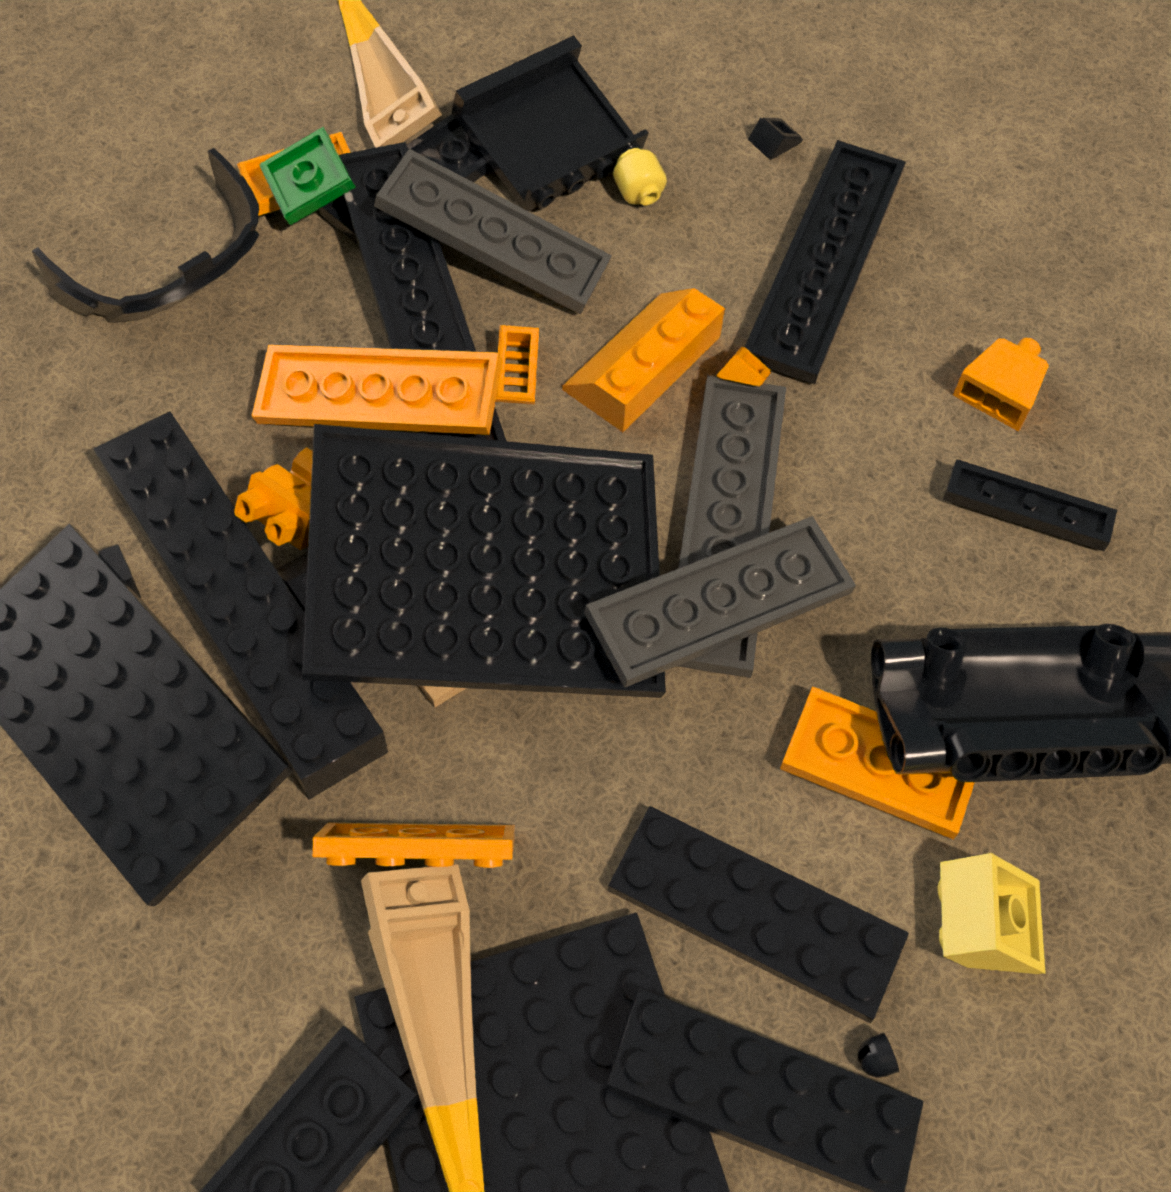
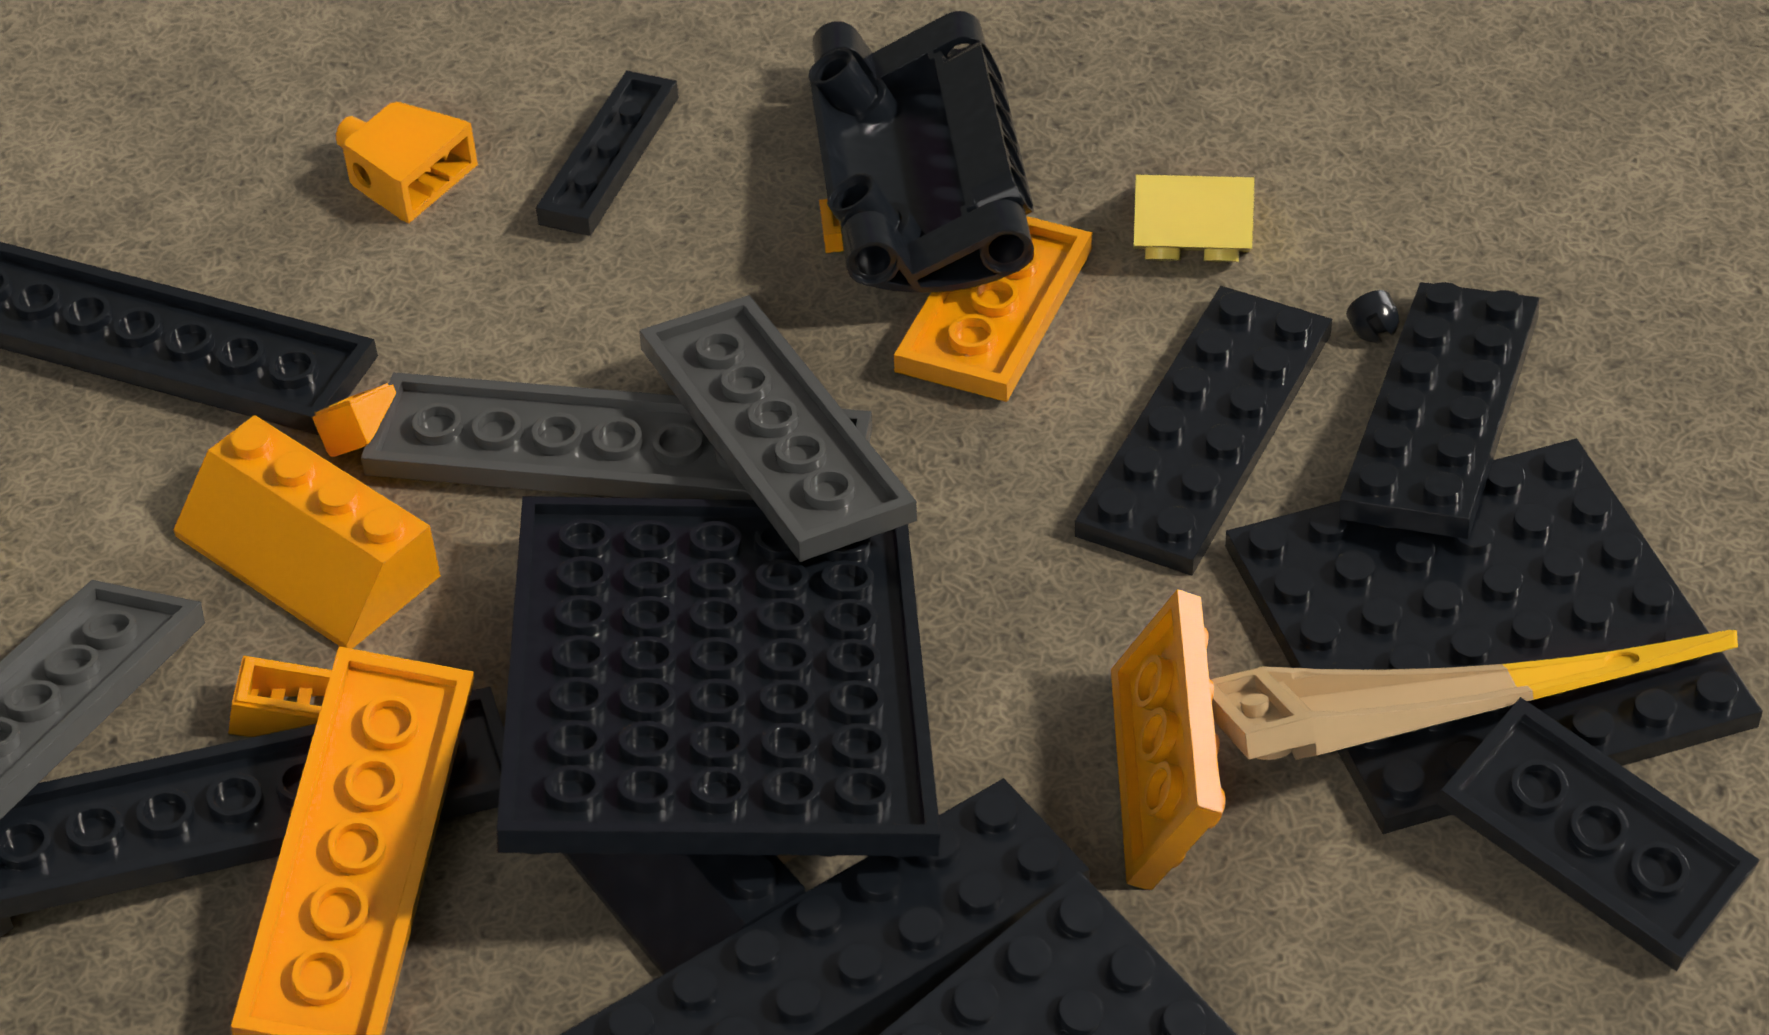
camera: 85 degrees left, 15 degrees down
(280, 501) = (574, 935): light orange hips -> none

